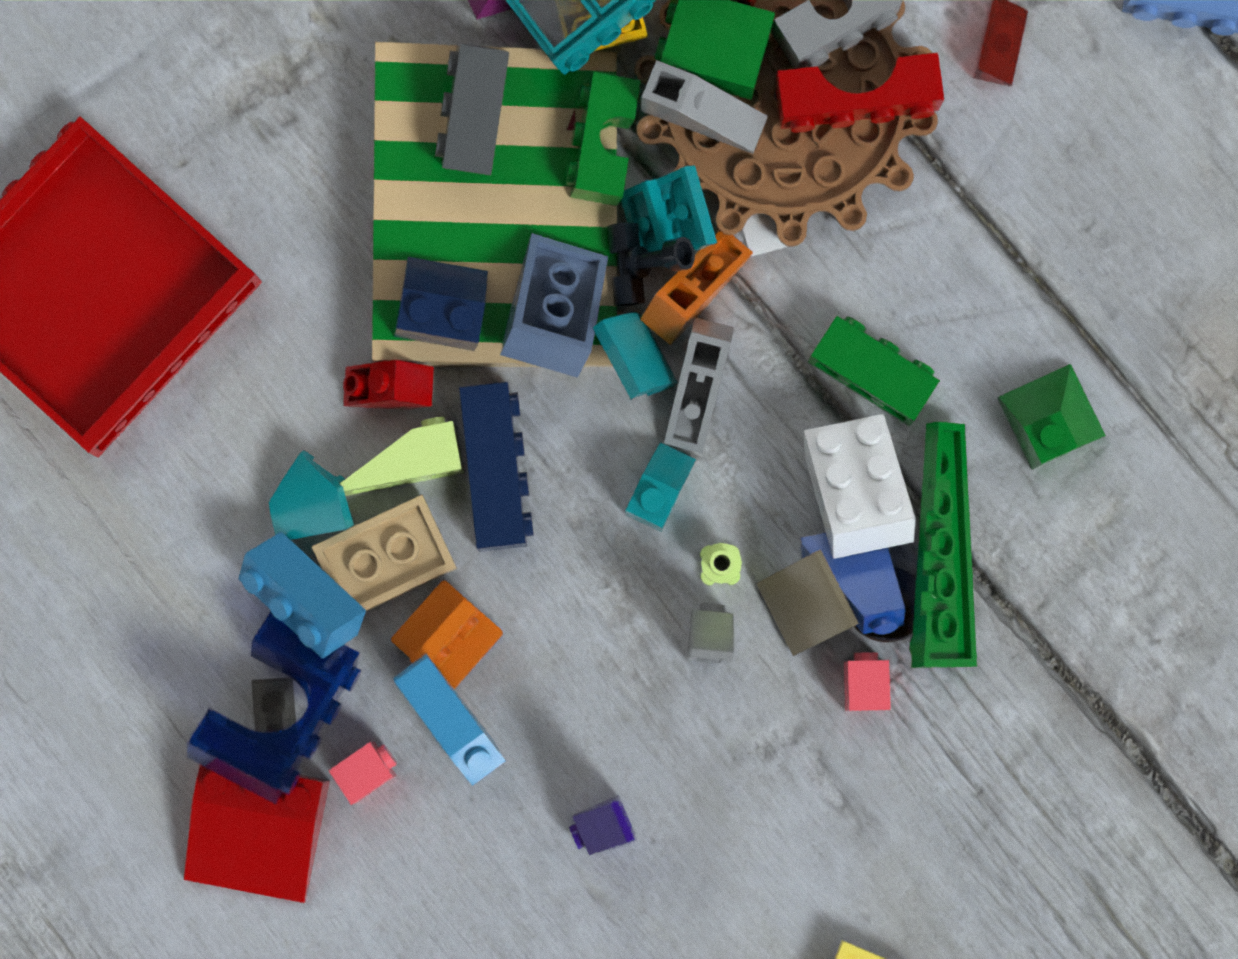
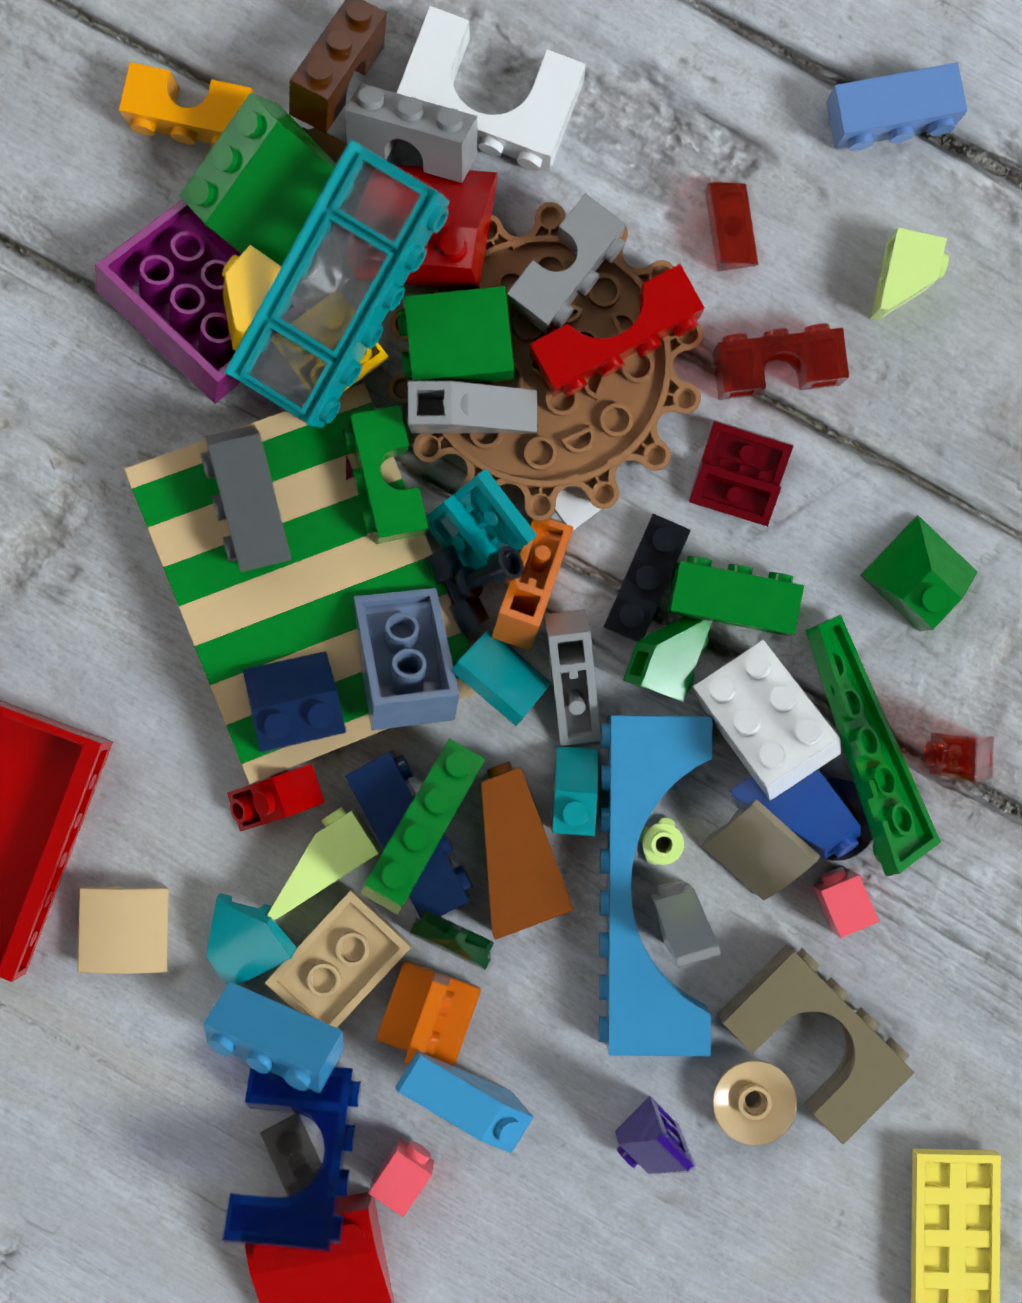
camera: 25 degrees left, 5 degrees up
(203, 450) = (122, 930): none -> tan slope
(496, 573) = (453, 939): none -> dark green slope
(510, 456) = (422, 826): none -> green arch
(585, 530) = (520, 860): none -> dark orange slope
(716, 856) = (761, 1121): none -> tan dish
(734, 484) = (642, 1005): none -> dark azure arch
(790, 400) = (668, 658): none -> slope
(800, 324) = (646, 578): none -> black plate
(834, 841) = (869, 1068): none -> dark tan arch
(923, 263) = (740, 473): none -> dark red slope
(1025, 589) = (960, 756): none -> clear red slope
(1030, 181) = (814, 354): none -> clear red arch
(1145, 141) = (908, 269): none -> yellowish green slope

